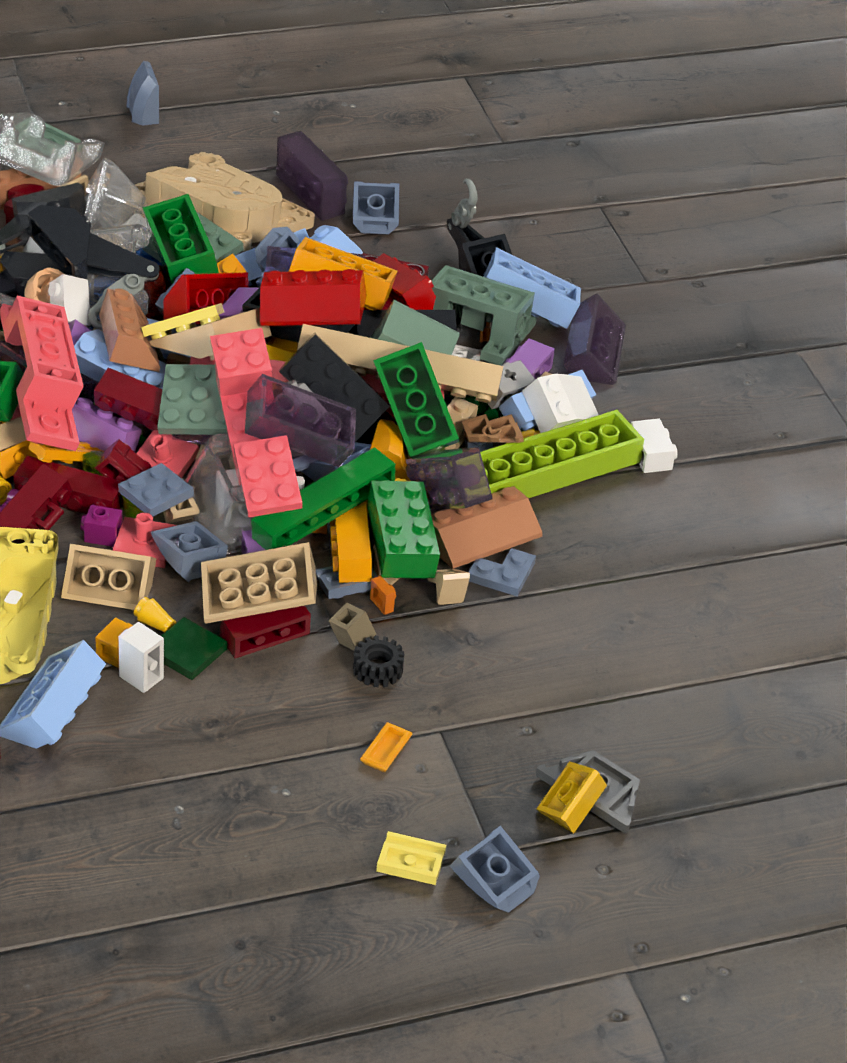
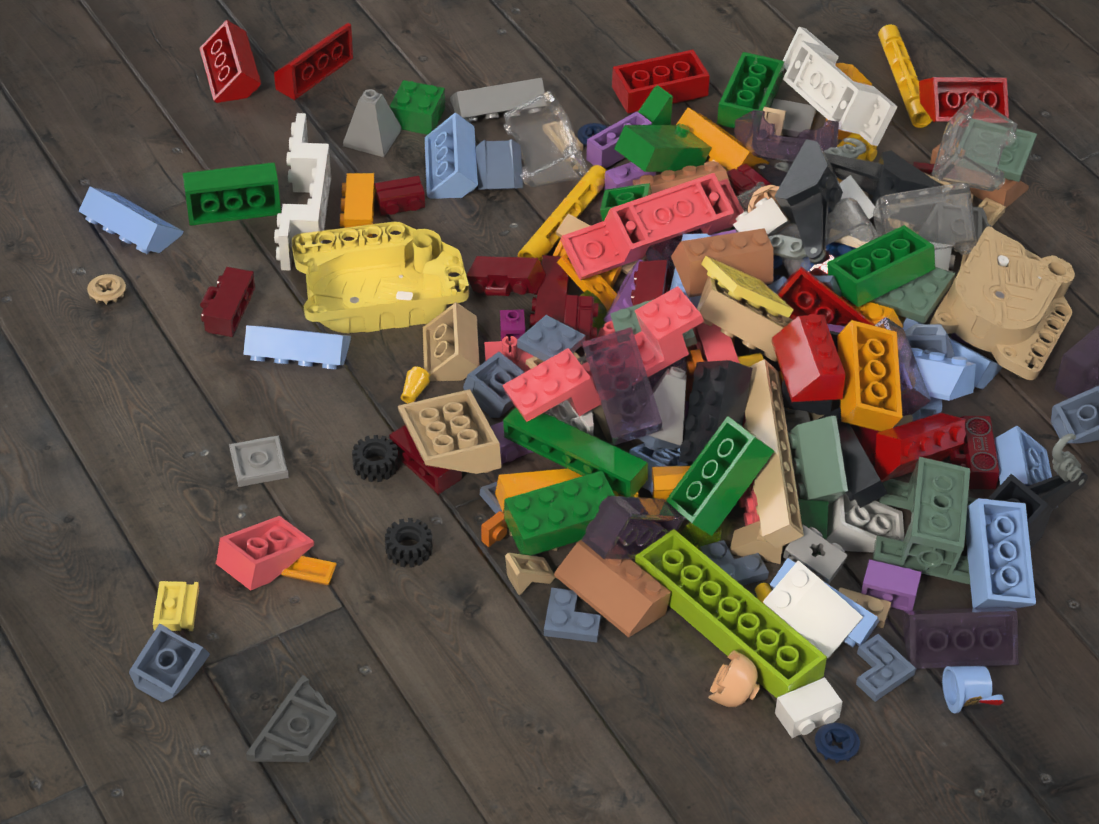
camera: 80 degrees right, 5 degrees up
(108, 641) = (372, 368): light orange brick -> none
(141, 657) = (347, 380): white brick -> none
(191, 648) = (381, 415): dark green tile -> none
(214, 762) = (258, 461): none -> light grey tile
(248, 676) = (375, 469): none -> black tyre
(351, 626) = (435, 510): dark tan brick -> none
(363, 771) = (261, 551): none -> coral slope
(422, 253) = (1021, 457): none -> light blue slope
(497, 430) = (747, 562): medium nougat slope -> none
(572, 795) = (263, 705): yellow slope -> none
(615, 479) = (735, 681): none -> light nougat cylinder
(622, 392) = (887, 670): none -> sand blue plate
(654, 353) = (968, 687): none -> light blue hat
(696, 441) = (839, 733): none -> dark blue gear

